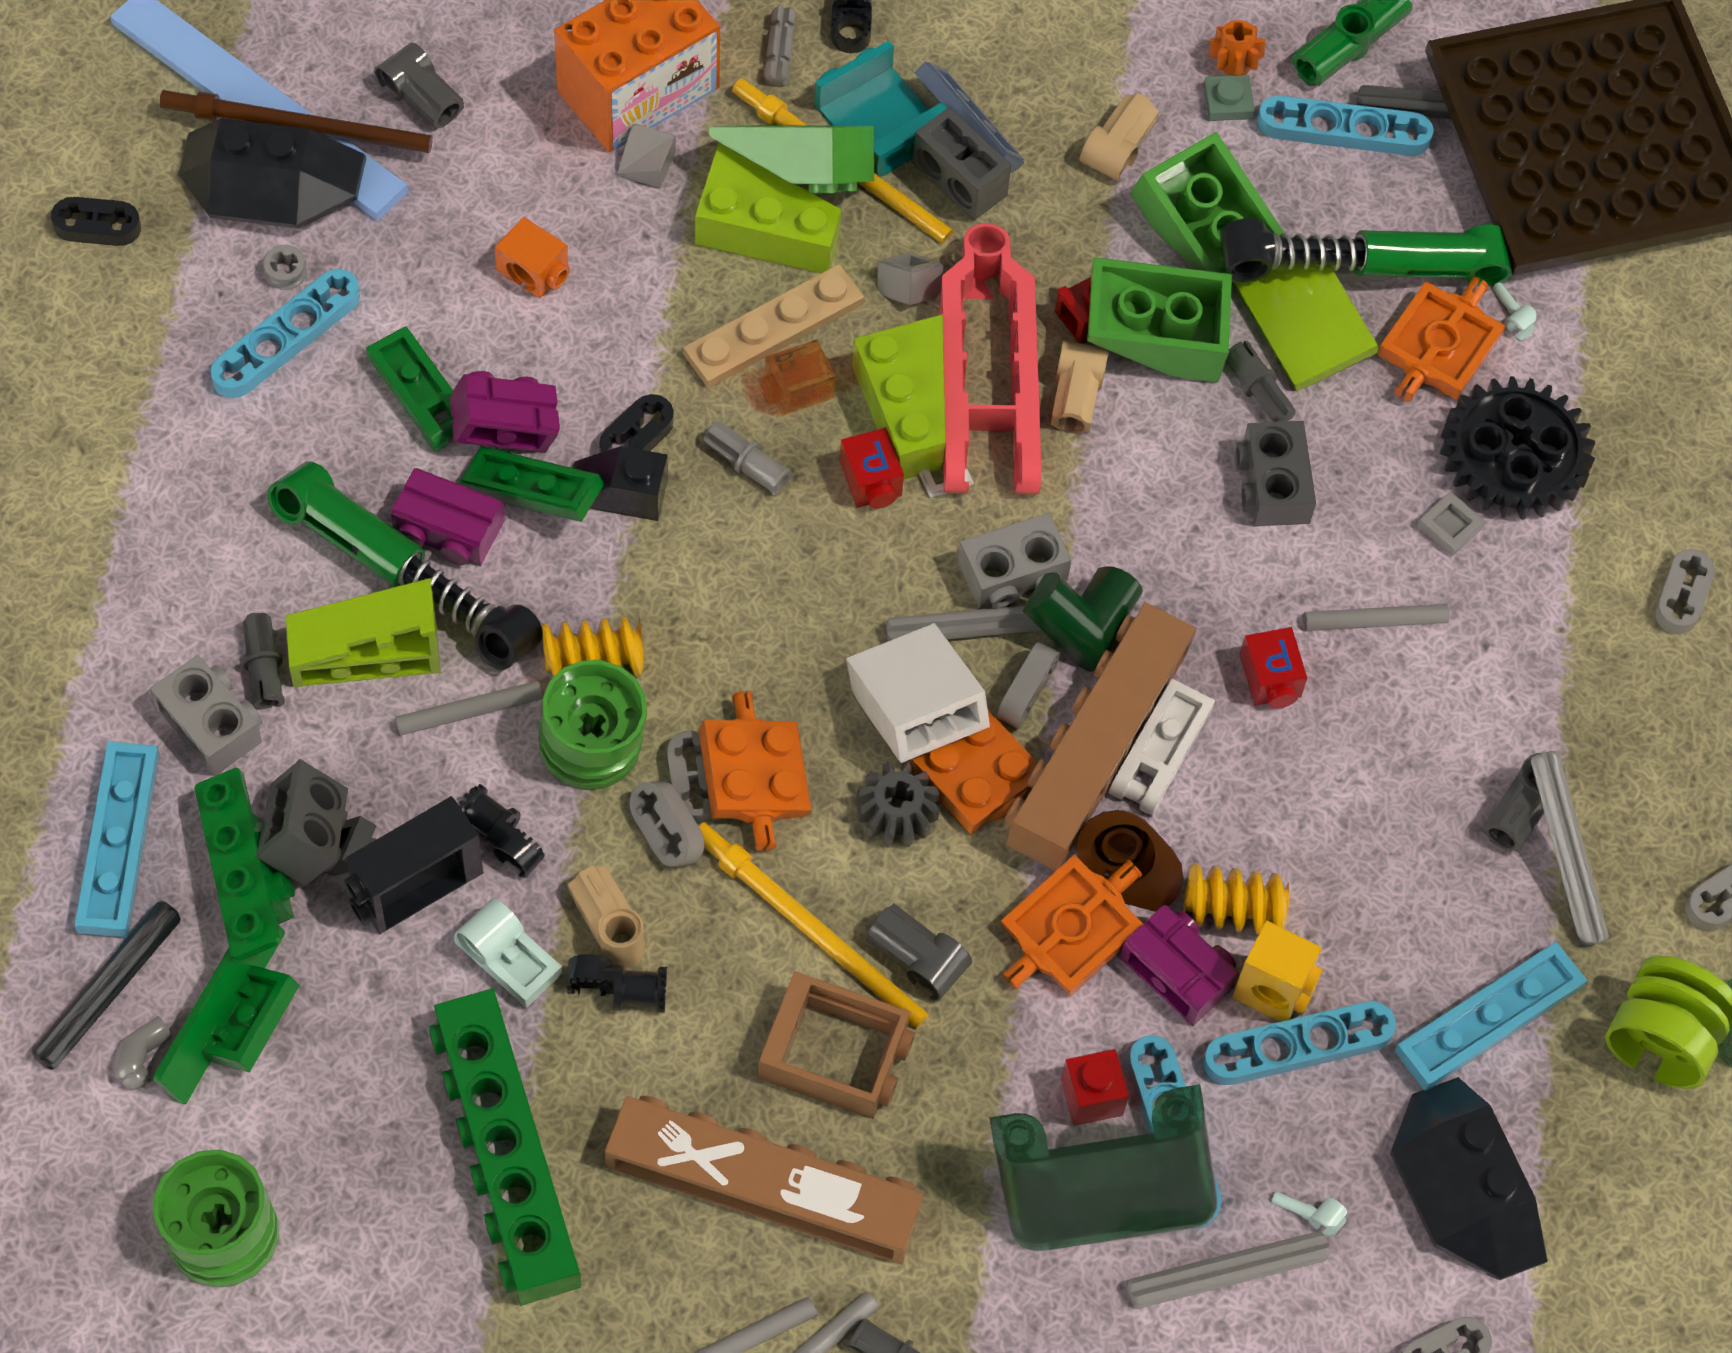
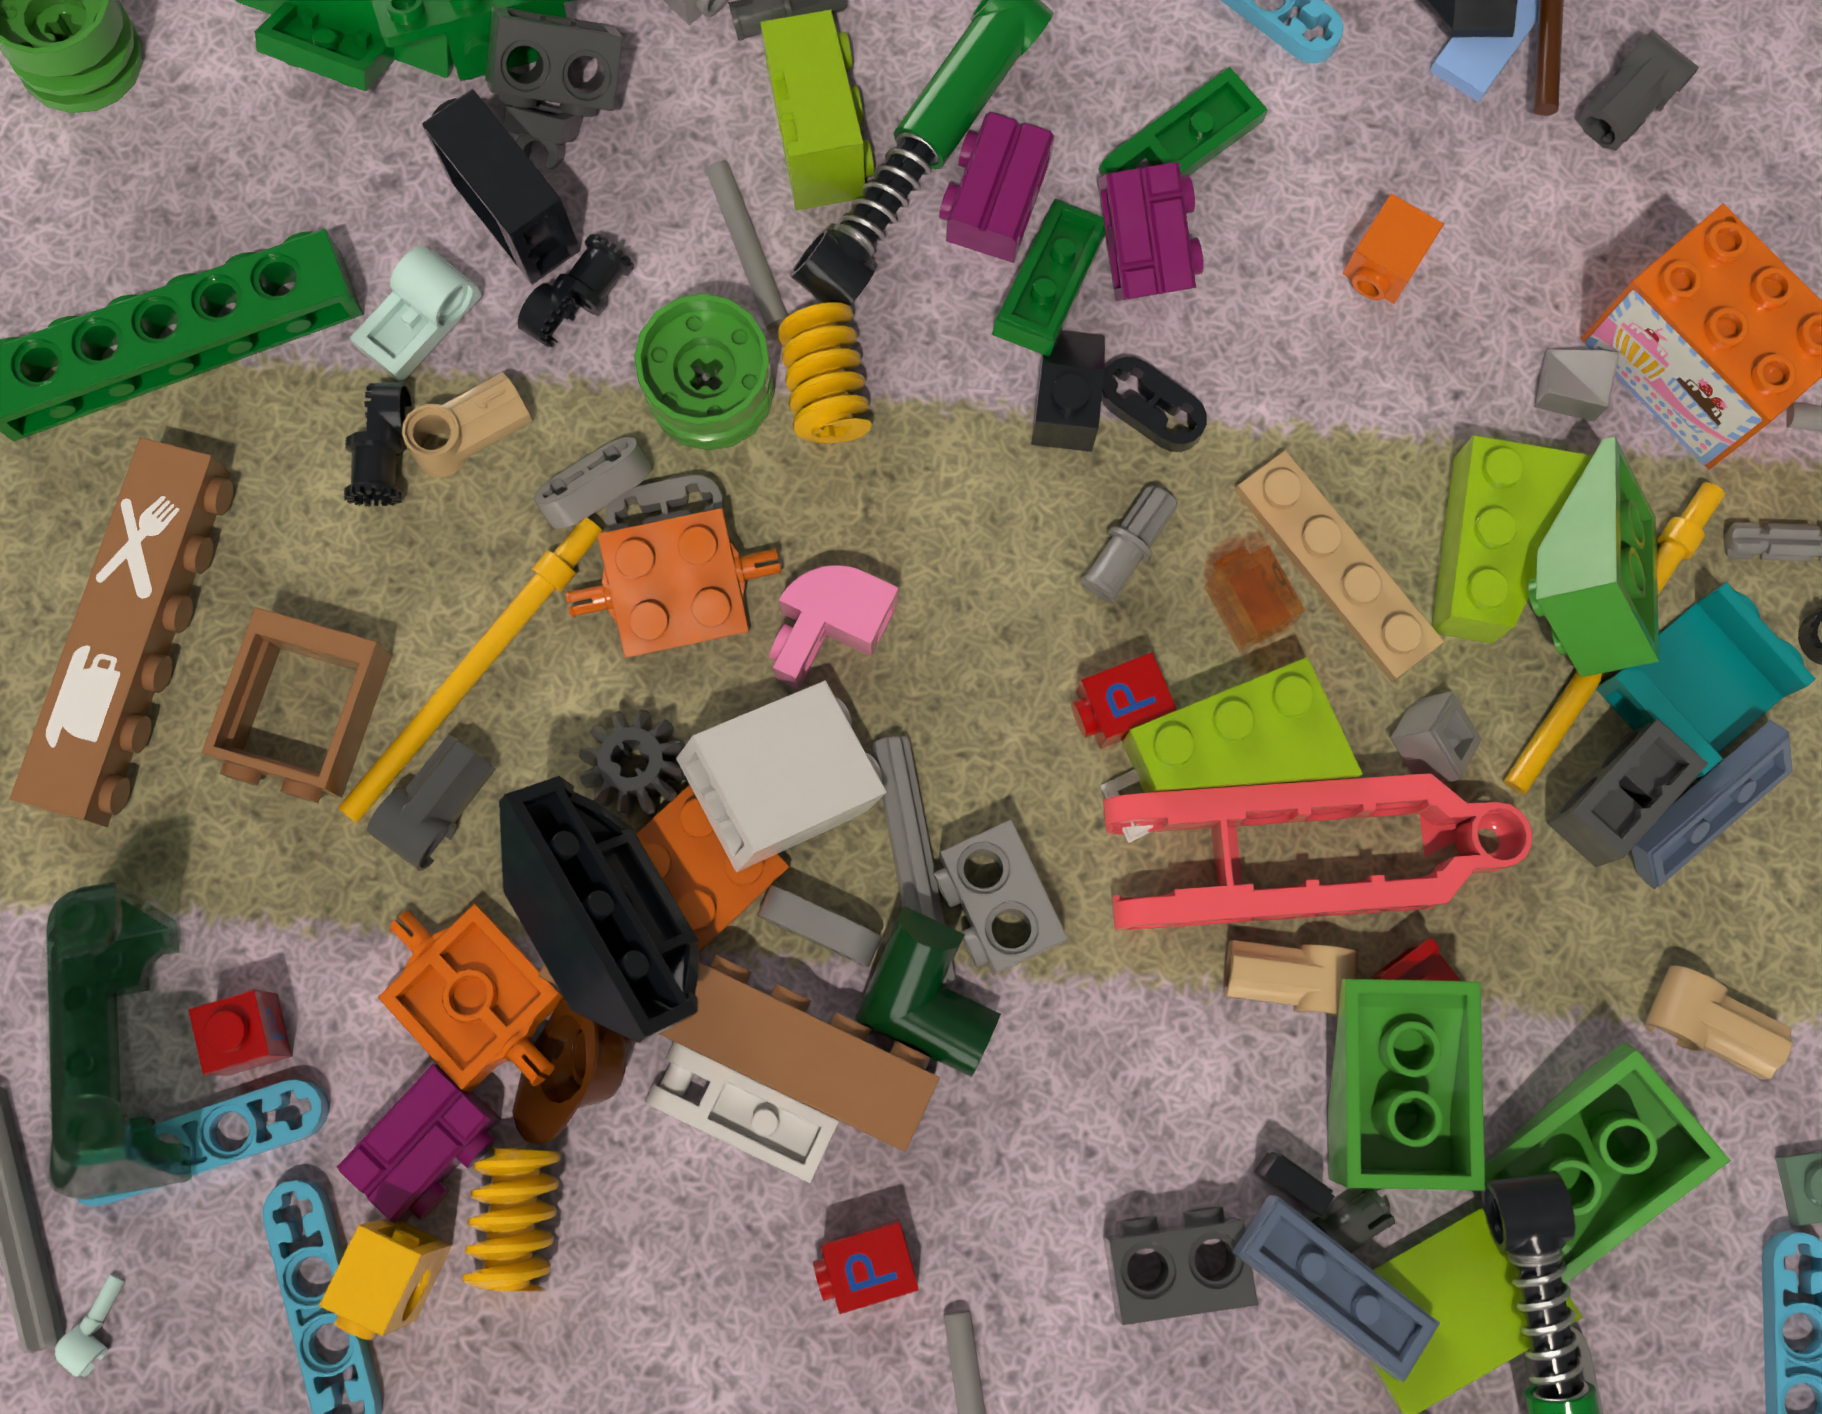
camera: 90 degrees right, 15 degrees up
(785, 661) = (834, 604): none -> bright pink brick
(1034, 789) = (597, 911): none -> black wedge
(1221, 397) = (1295, 1182): none -> black tile
(1292, 374) = (1336, 1288): none -> sand blue tile

